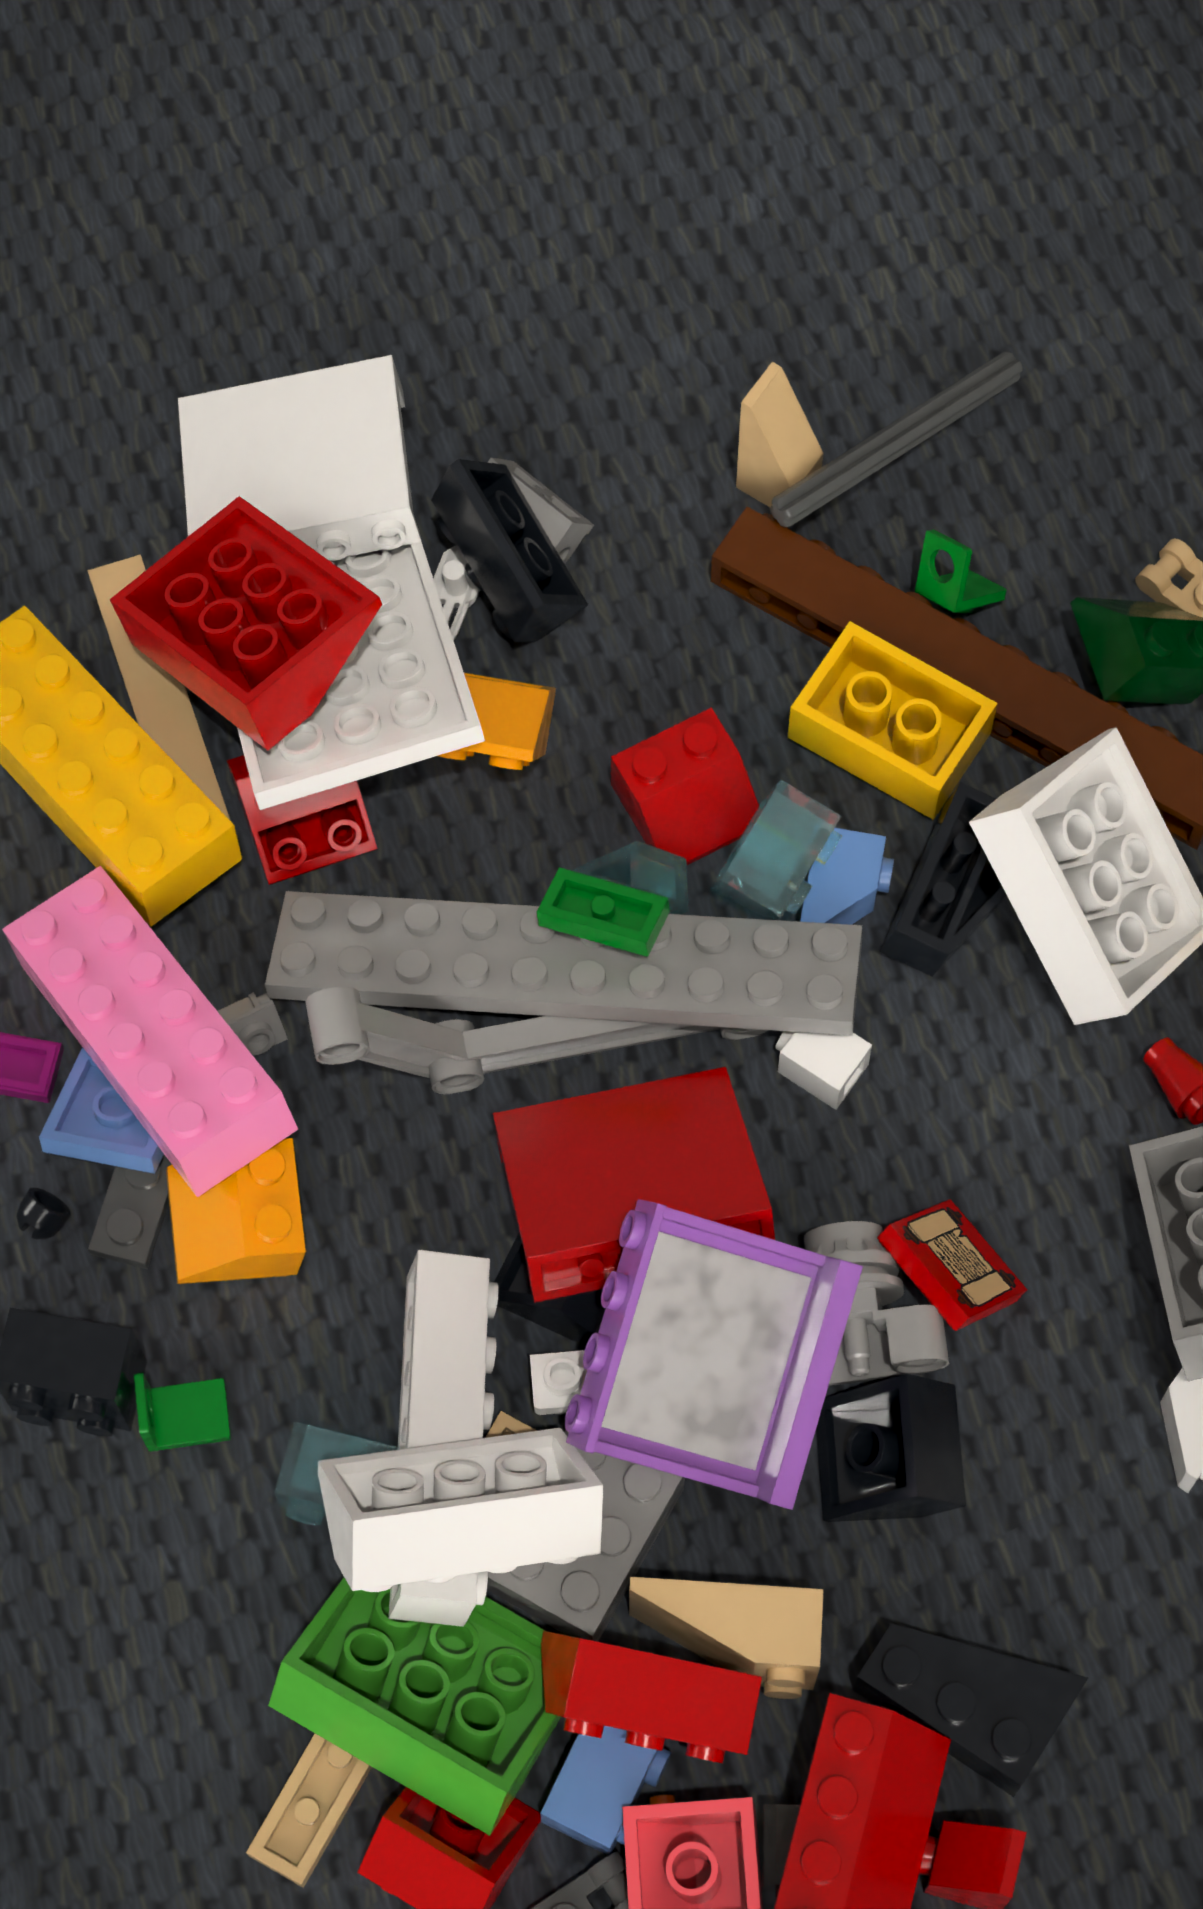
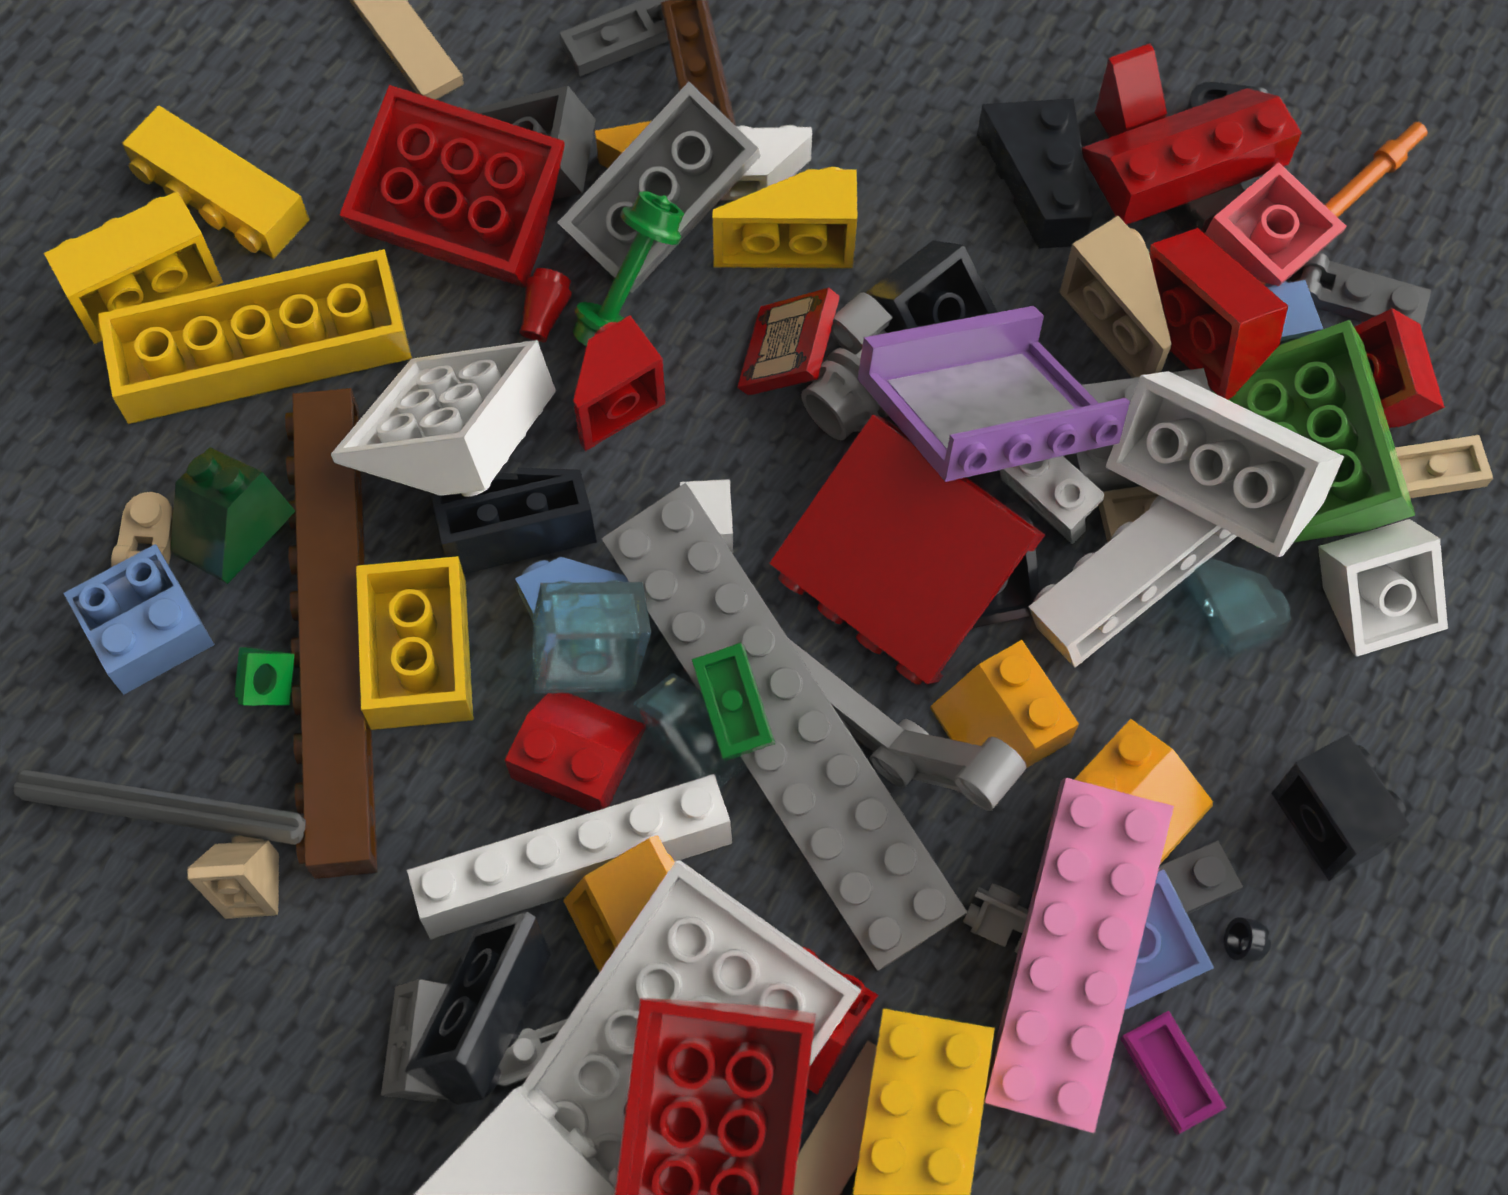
camera: 130 degrees left, 0 degrees up
(182, 1413) = (1286, 730): green bracket -> none
(234, 1632) = (1385, 585): none -> white slope
(410, 1173) = (1008, 701): none -> light orange slope
(586, 720) = (555, 858): none -> white brick
(1031, 1063) = (617, 382): none -> red slope
(1073, 1393) = (791, 223): none -> yellow slope
(1096, 523) = (138, 619): none -> medium blue slope
(1160, 1174) = (653, 220): none -> green piece

